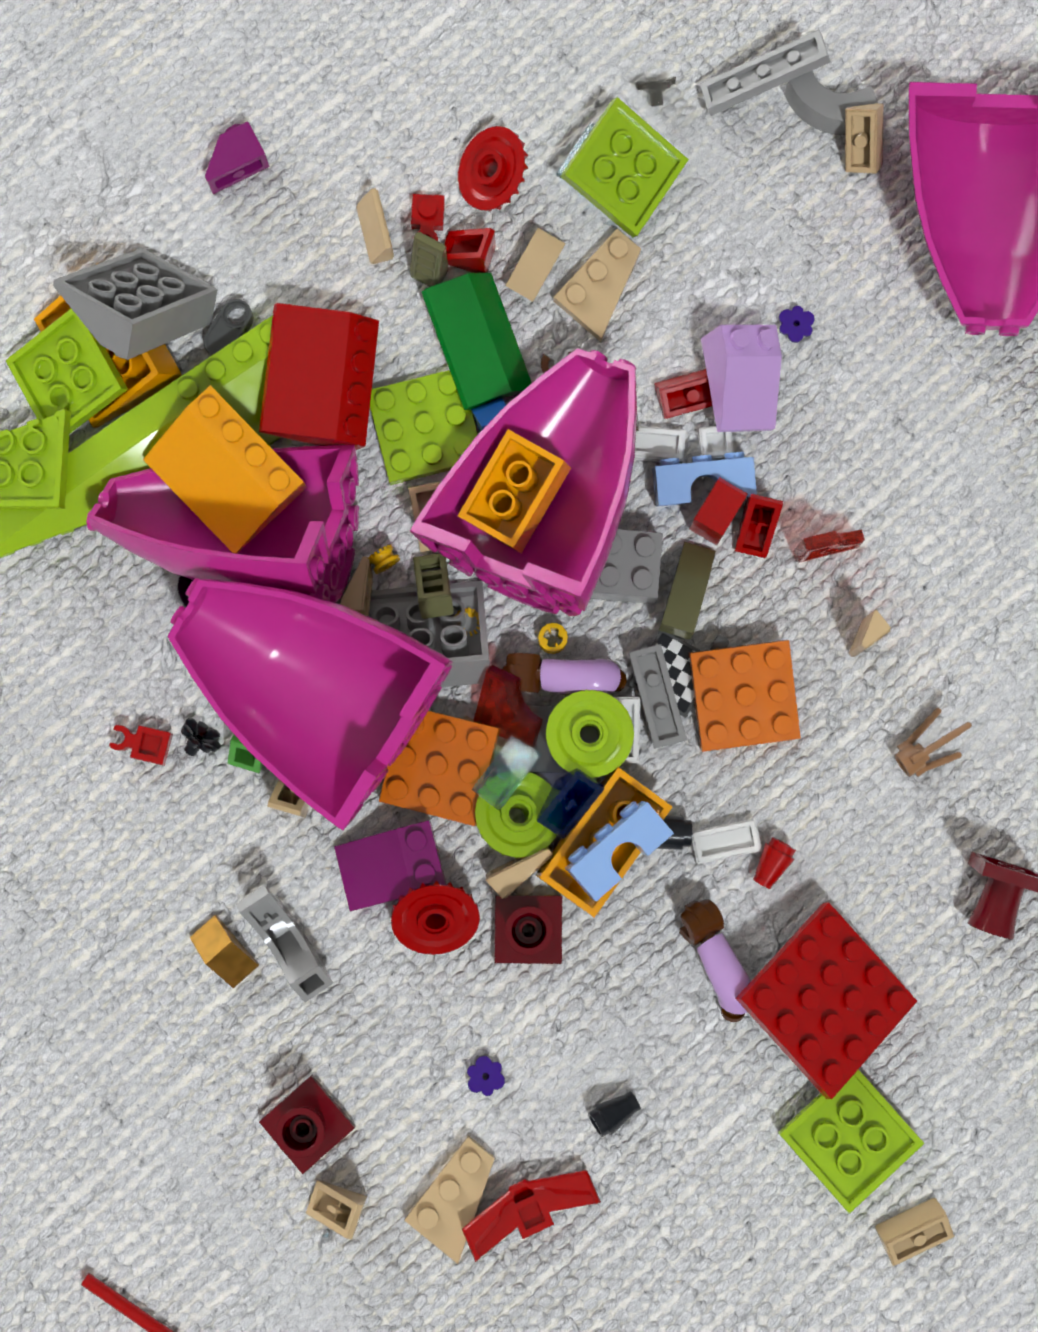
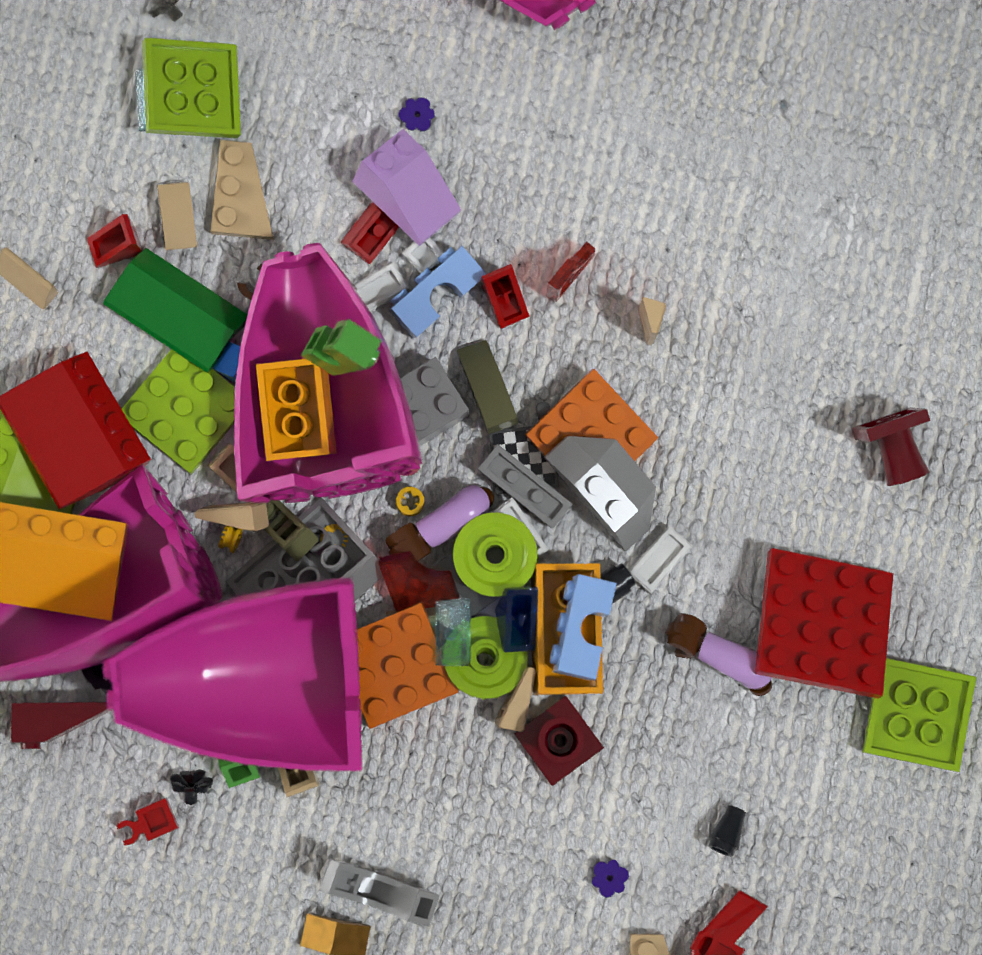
camera: 40 degrees left, 0 degrees up
(123, 600) = (48, 721): none -> dark red slope
(360, 588) = (232, 578): tan slope -> none
(389, 864) = (415, 772): magenta slope -> none
(405, 548) = (239, 515): none -> tan slope
(428, 214) = (60, 239): red plate -> none
(428, 260) = (90, 275): olive slope -> none
(435, 918) = (481, 786): red gear -> none
(492, 168) = (86, 164): red gear -> none
(588, 464) = (342, 349): none -> bright green arch
(718, 511) = (466, 307): red slope -> none
(727, 745) = (606, 484): none -> light grey wedge
(773, 862) = (708, 546): red cone -> none
(914, 758) = (756, 389): medium nougat plant -> none

